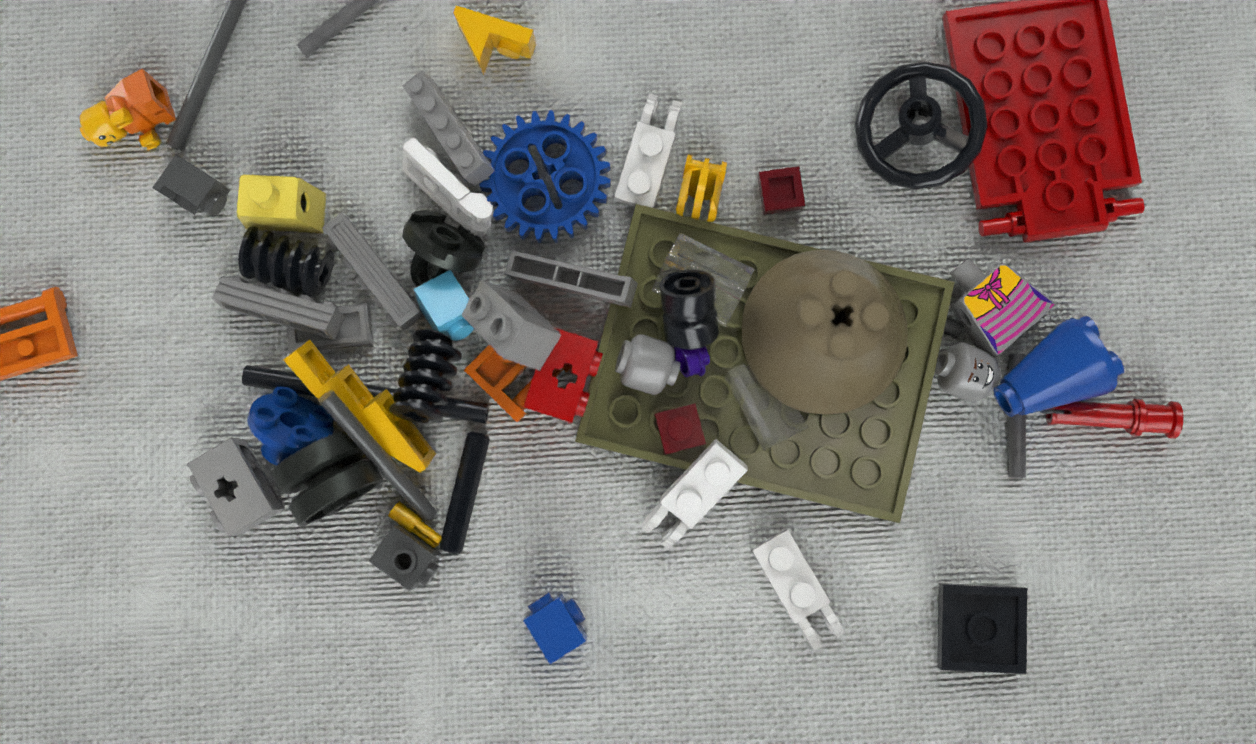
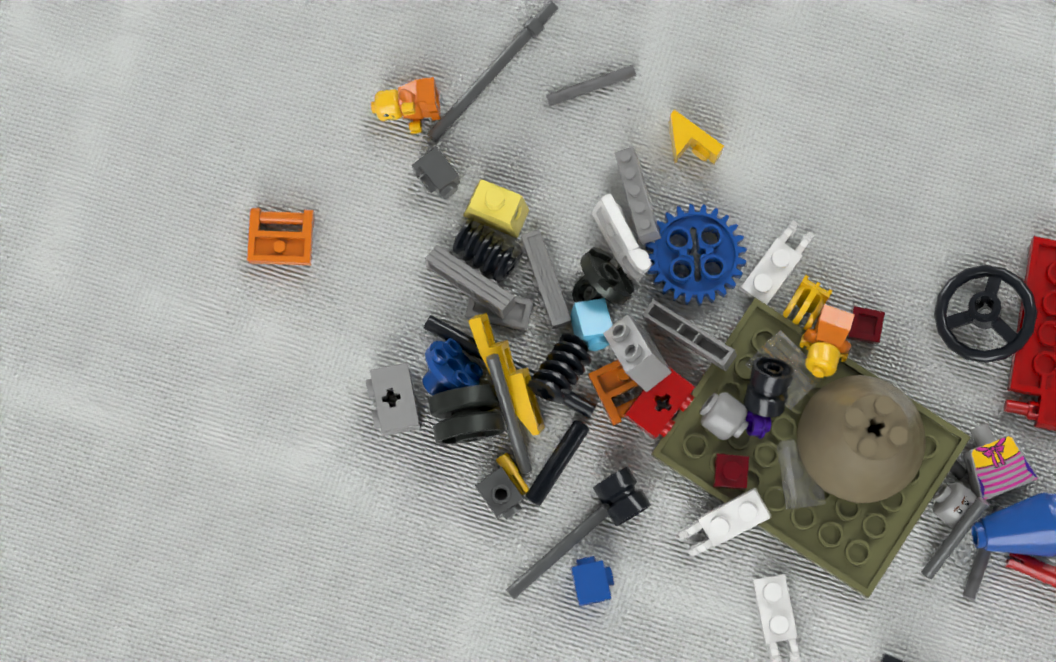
camera: 20 degrees right, 5 degrees down
(502, 602) = (557, 552): none -> dark grey bar
(556, 507) = (621, 496): none -> black wheel
(742, 226) = (827, 341): none -> piece
(980, 412) = (955, 537): none -> dark grey bar

